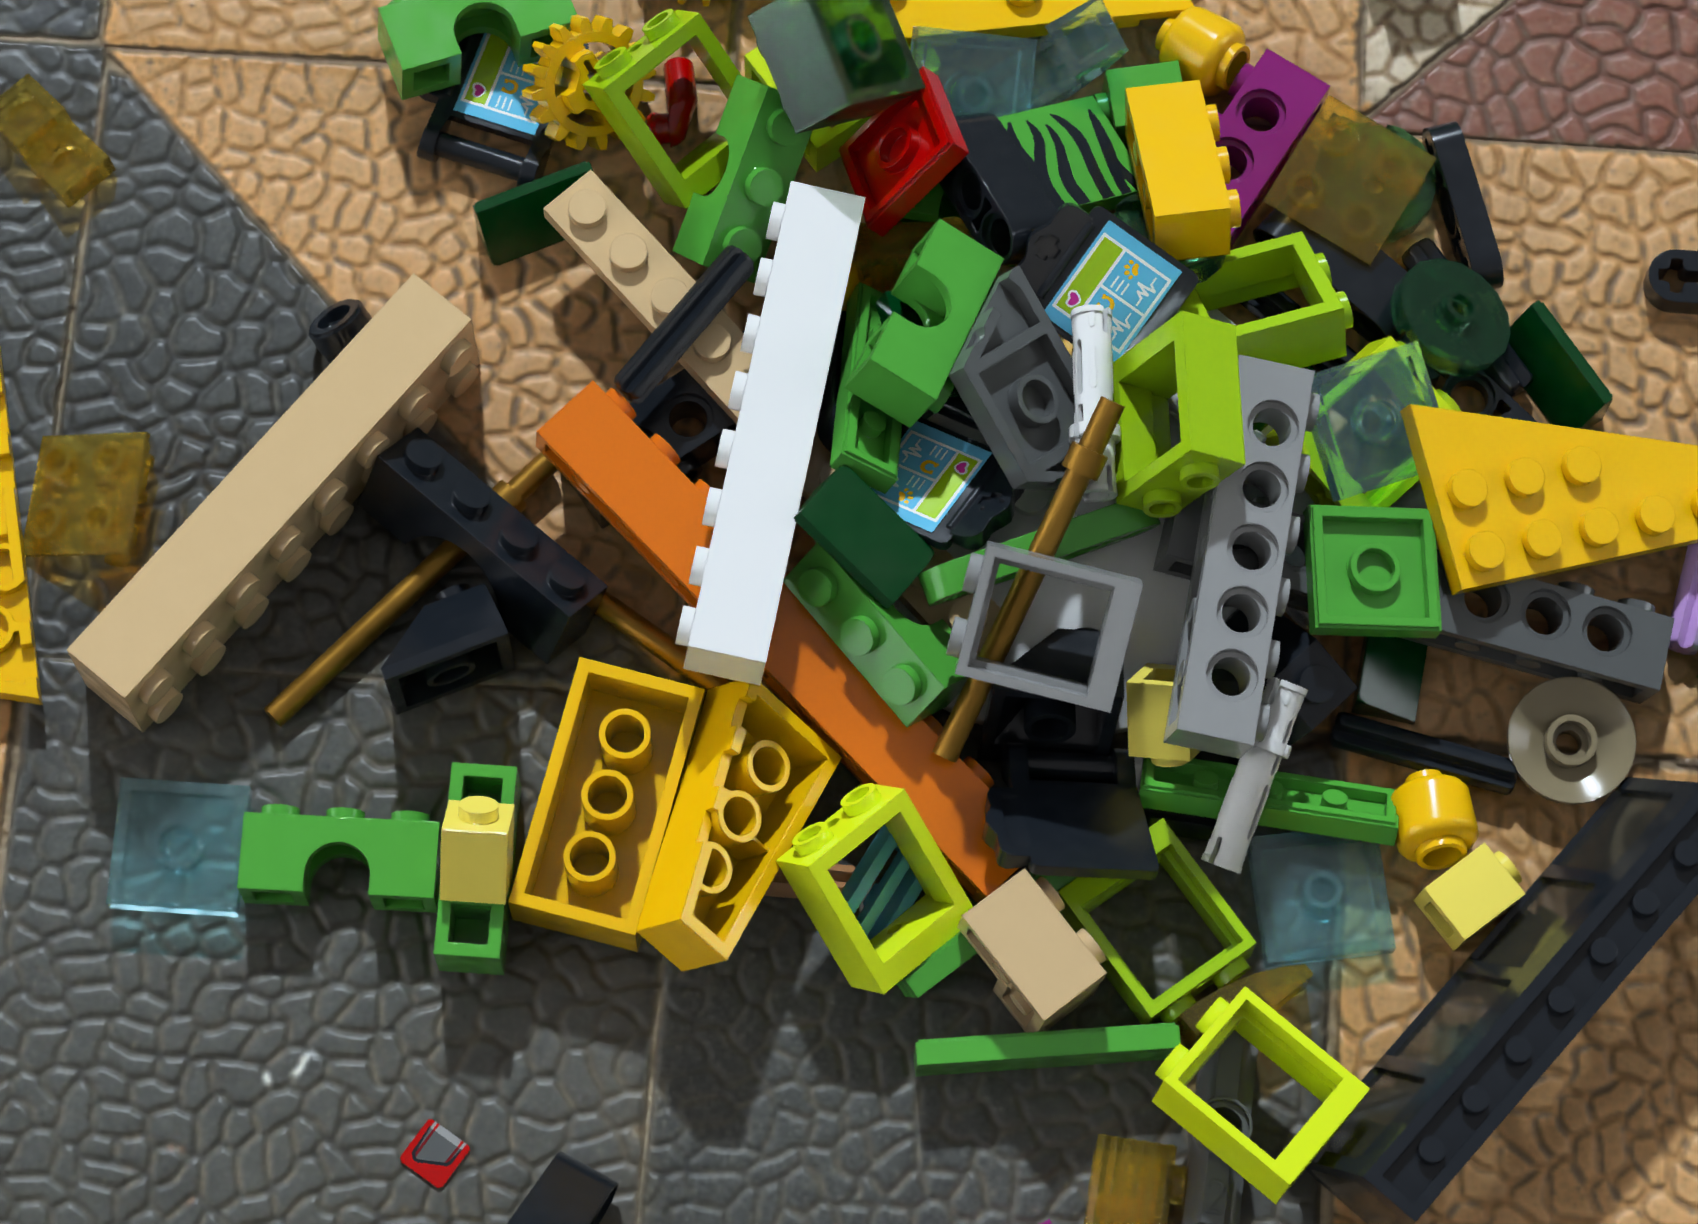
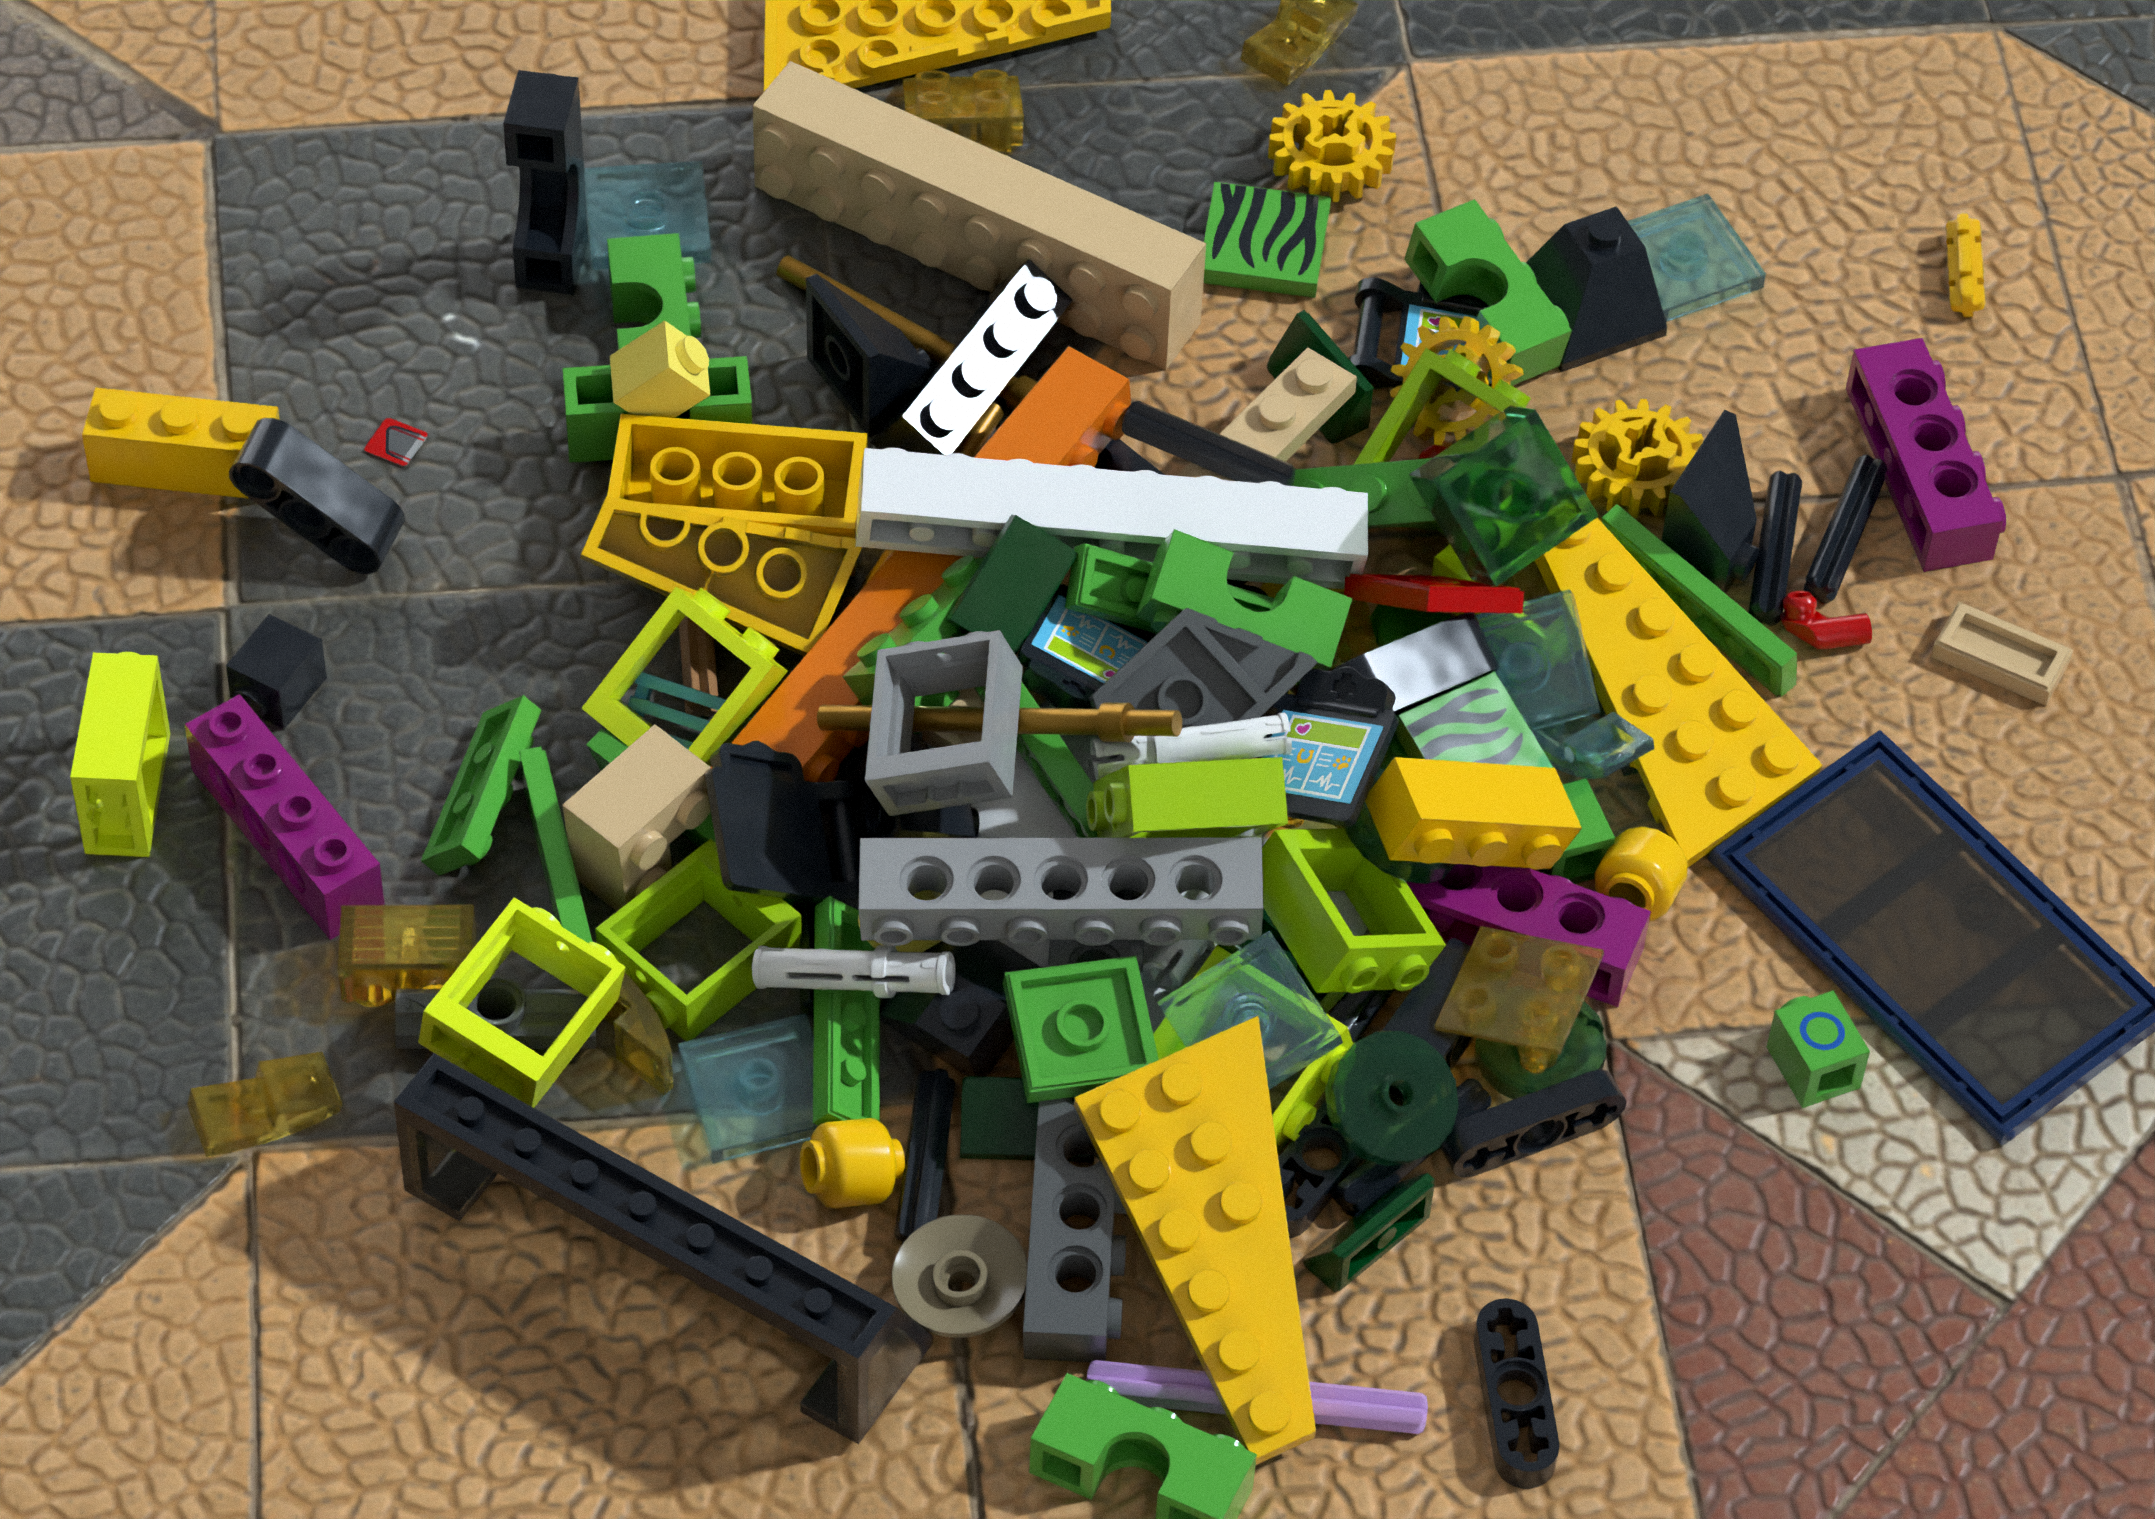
camera: 80 degrees right, 20 degrees down
(190, 929) = (547, 146): none -> black arch
(213, 161) = (1331, 145): none -> yellow gear
(331, 231) = (1265, 239): none -> bright green tile
(929, 1113) = (481, 786): none -> bright green plate
(1471, 895) = (777, 1199): light yellow brick -> none

